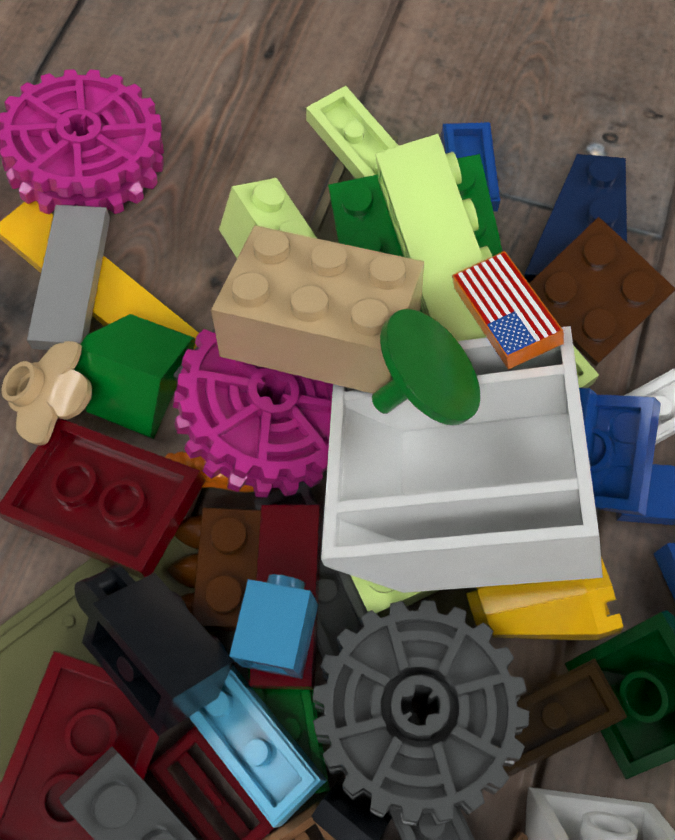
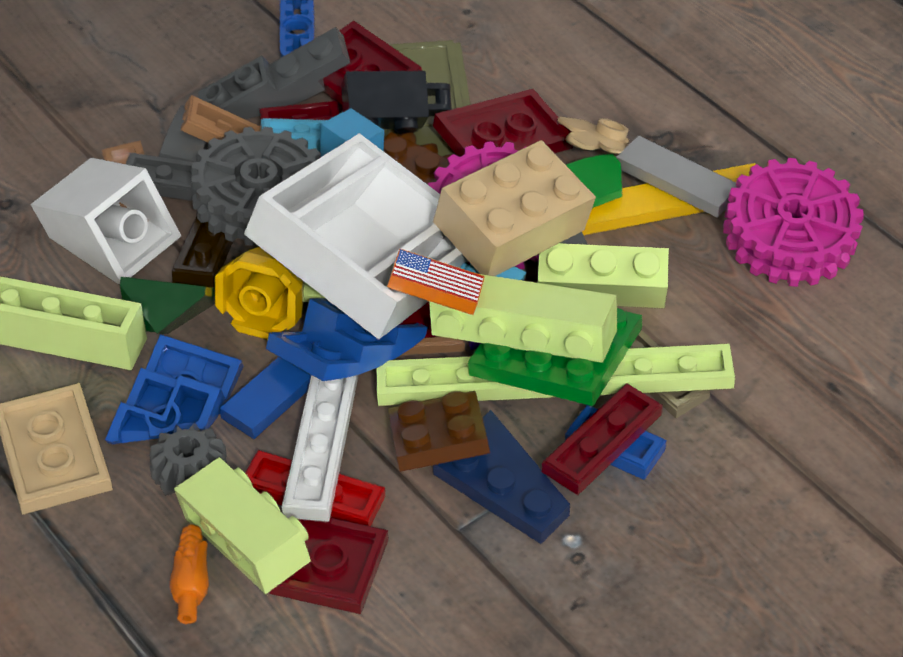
camera: 125 degrees right, 20 degrees down
(426, 369) = (419, 203): green shield -> none
(510, 159) = (601, 439): none -> dark red tile

